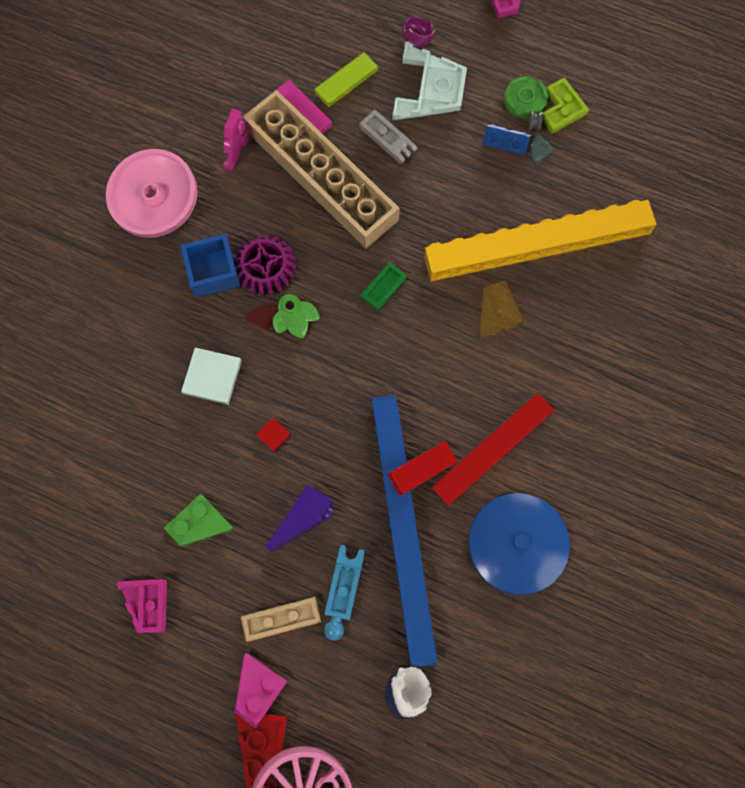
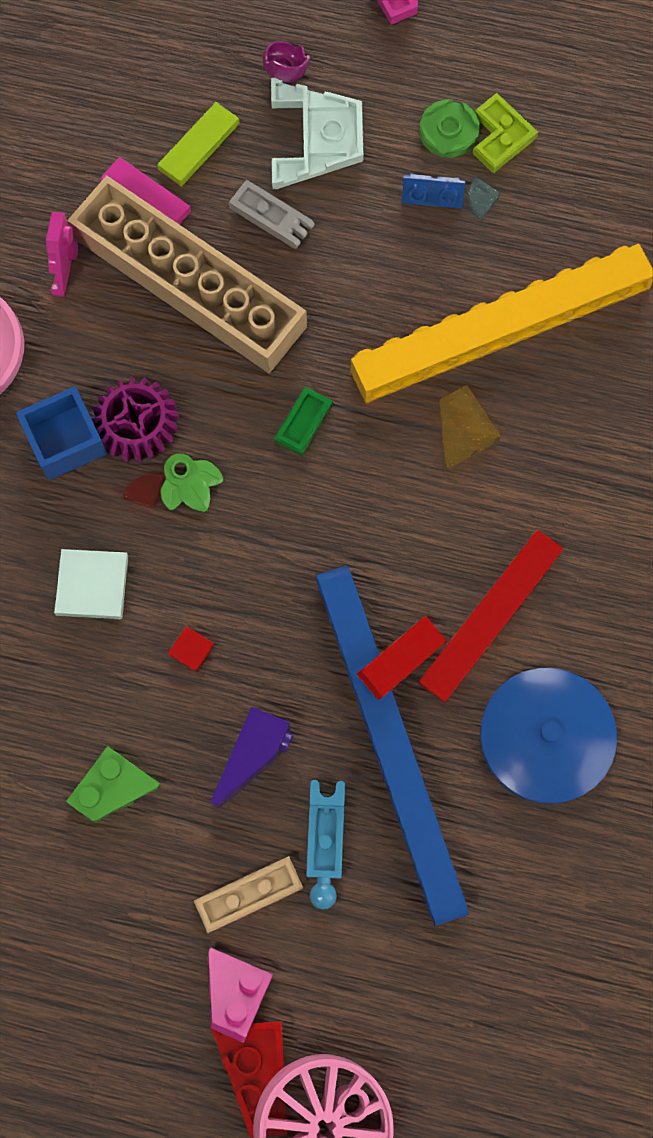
camera: 10 degrees left, 0 degrees up
(146, 604) = (62, 907): dark pink wing -> none
(407, 692) = (436, 958): white hair -> none
(535, 121) = (467, 160): dark grey bush -> none

